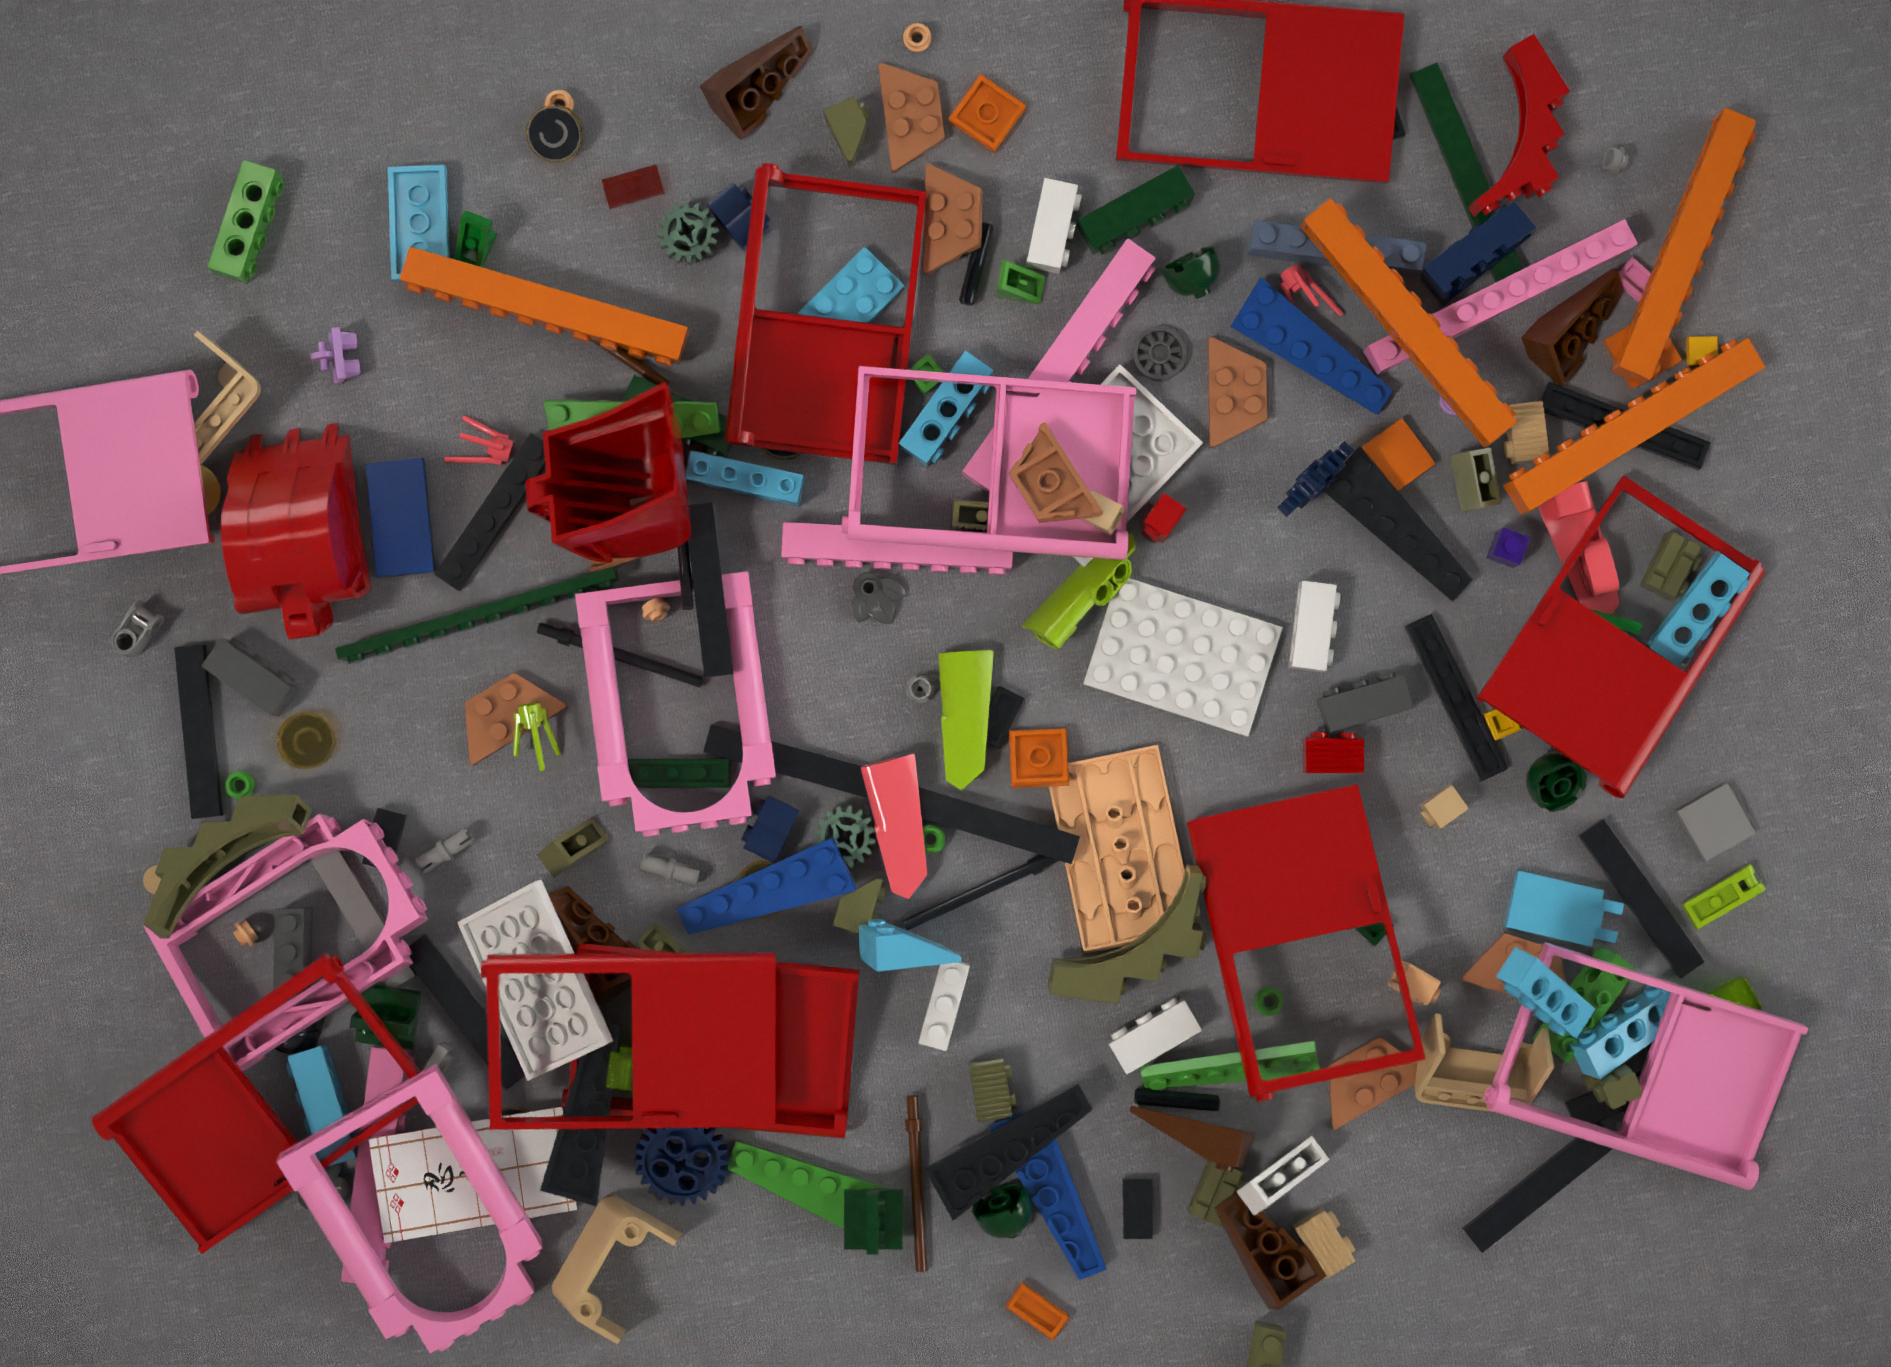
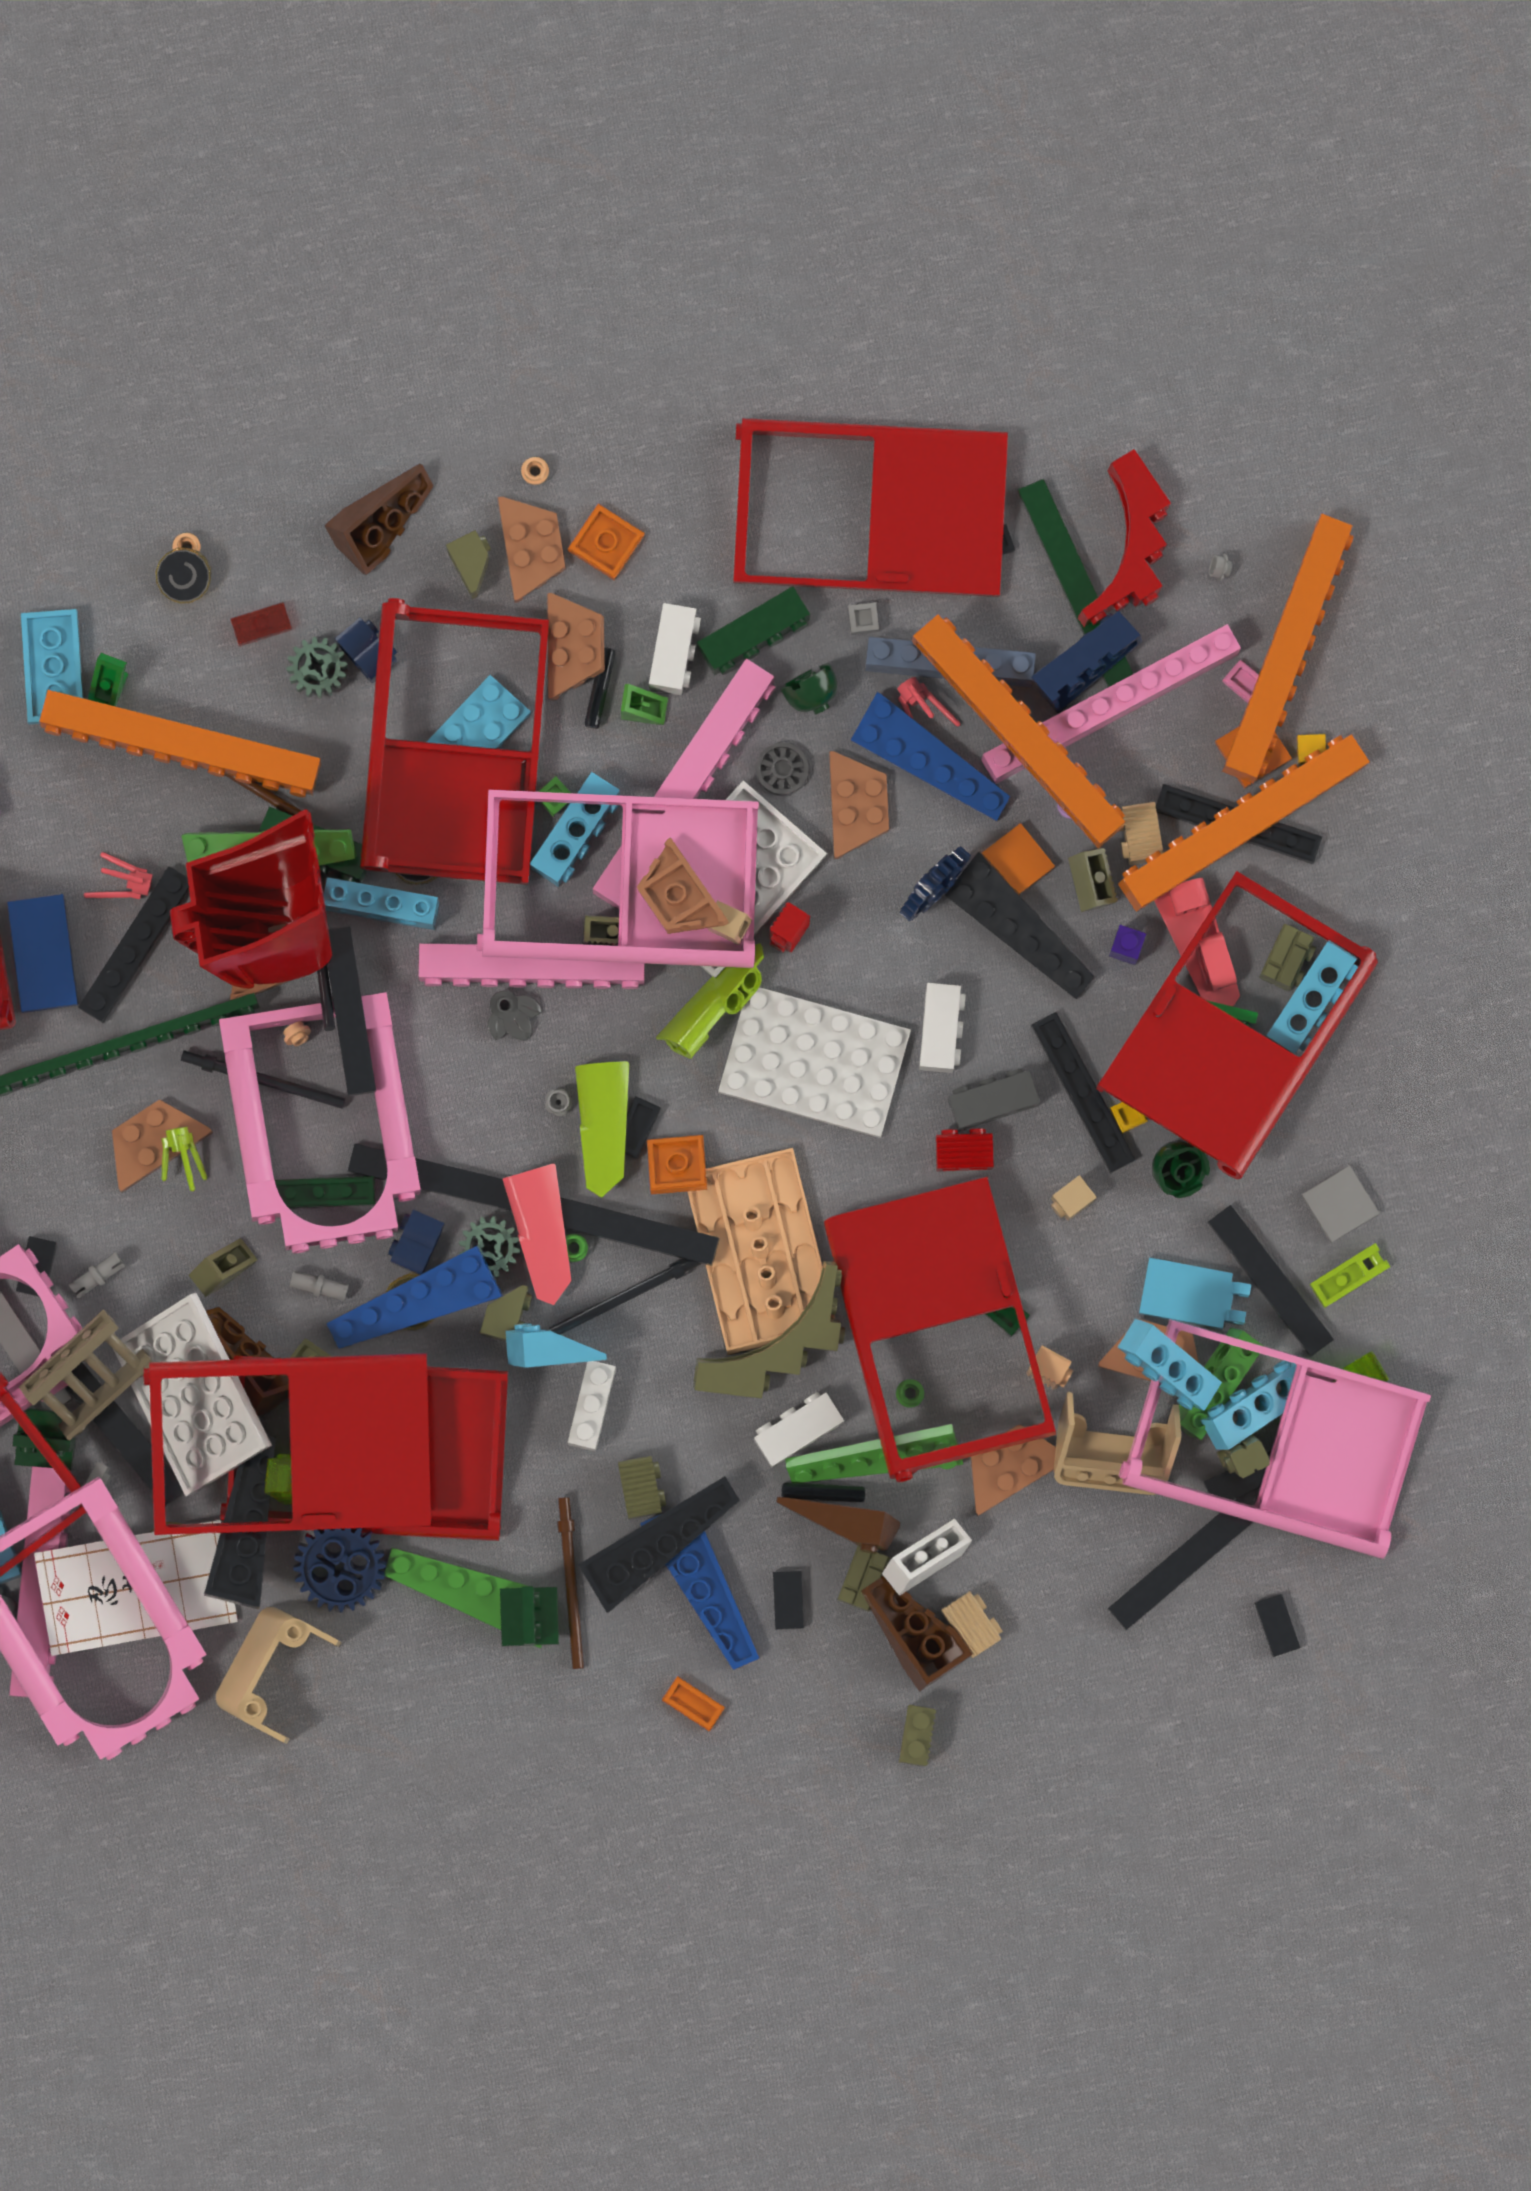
camera: 10 degrees left, 5 degrees down
(408, 942) = (74, 1352): none -> dark tan fence
(1005, 1211) = (658, 1605): dark green cylinder -> none
(1248, 201) = (863, 618): none -> light grey plate
(1564, 332) = (1176, 735): reddish brown wedge -> none
(1635, 1253) = (1277, 1625): none -> black tile

